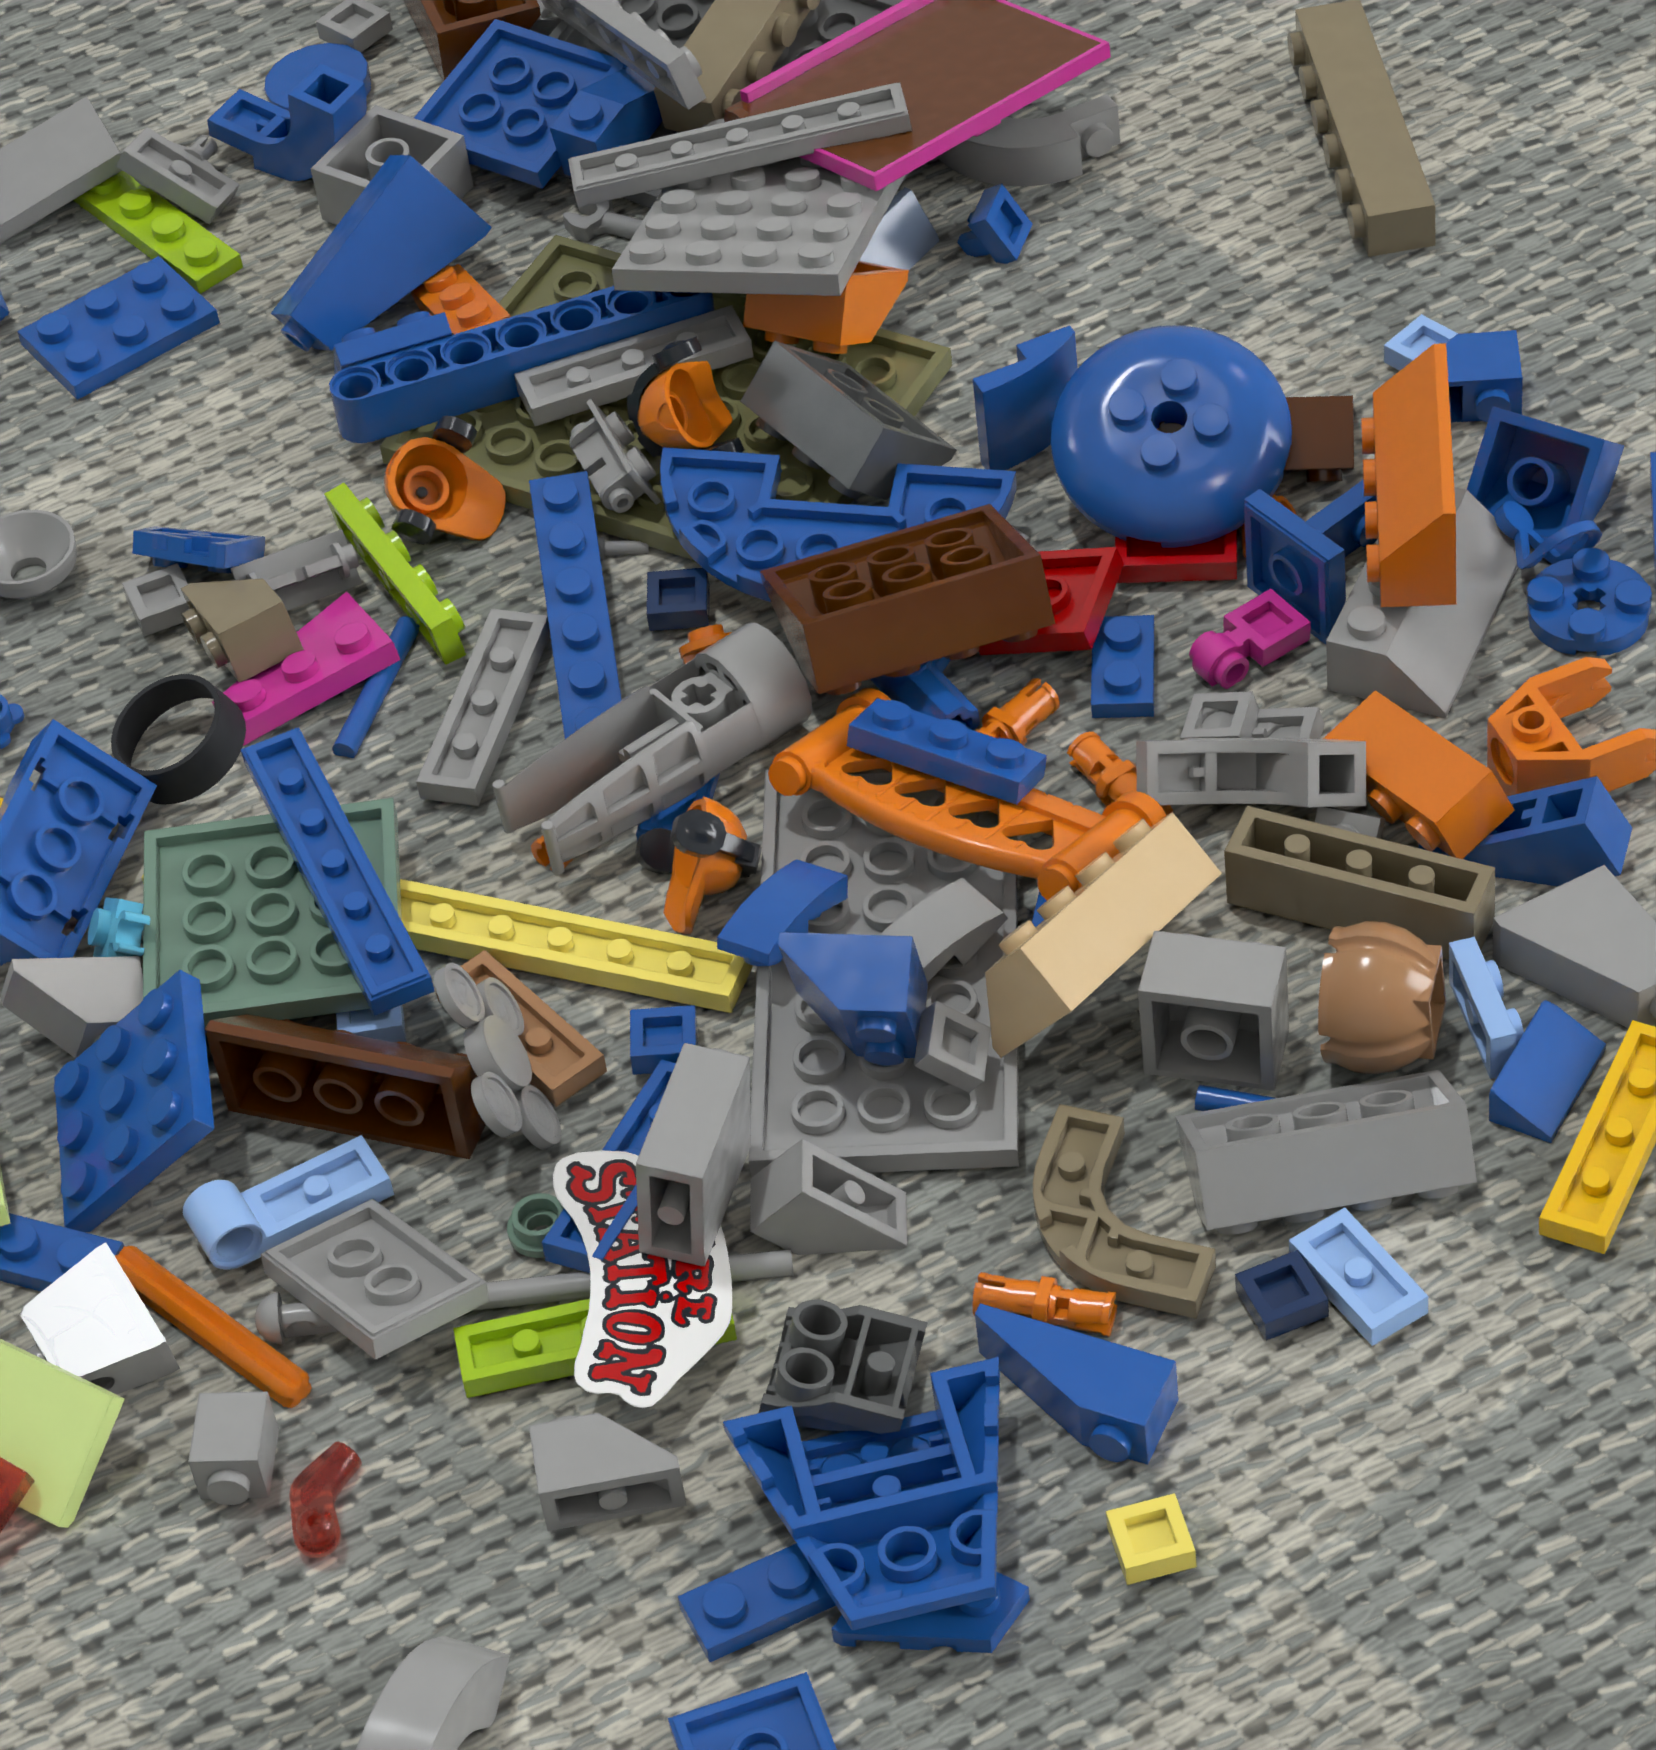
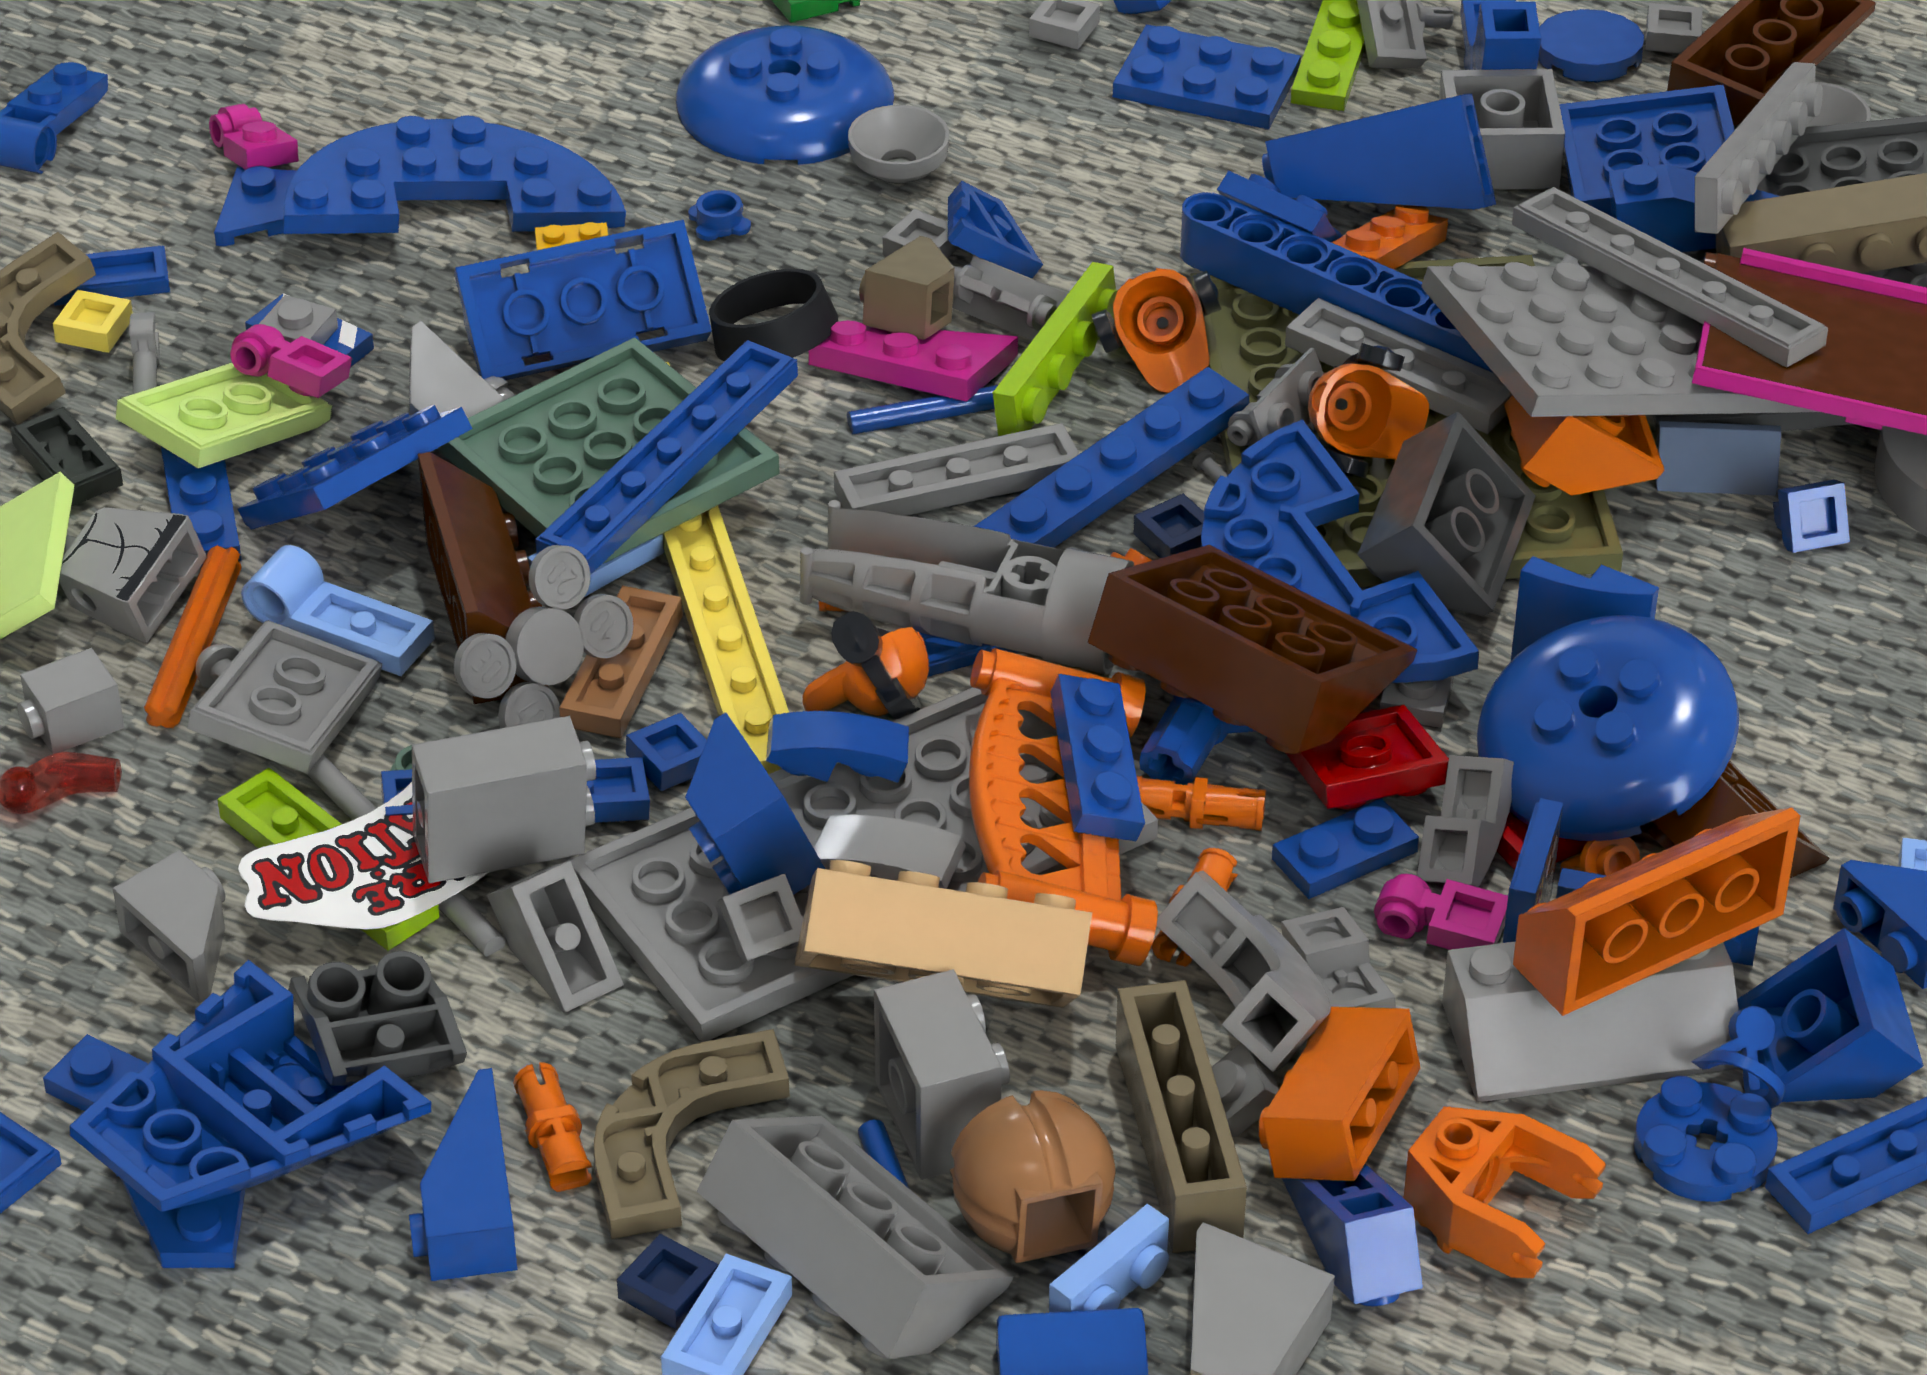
camera: 50 degrees right, 5 degrees down
(117, 928) = (530, 373): medium azure plate -> none
(1151, 1539) = (334, 1311): light yellow plate -> none
(1175, 574) = (1471, 821): none -> light grey slope

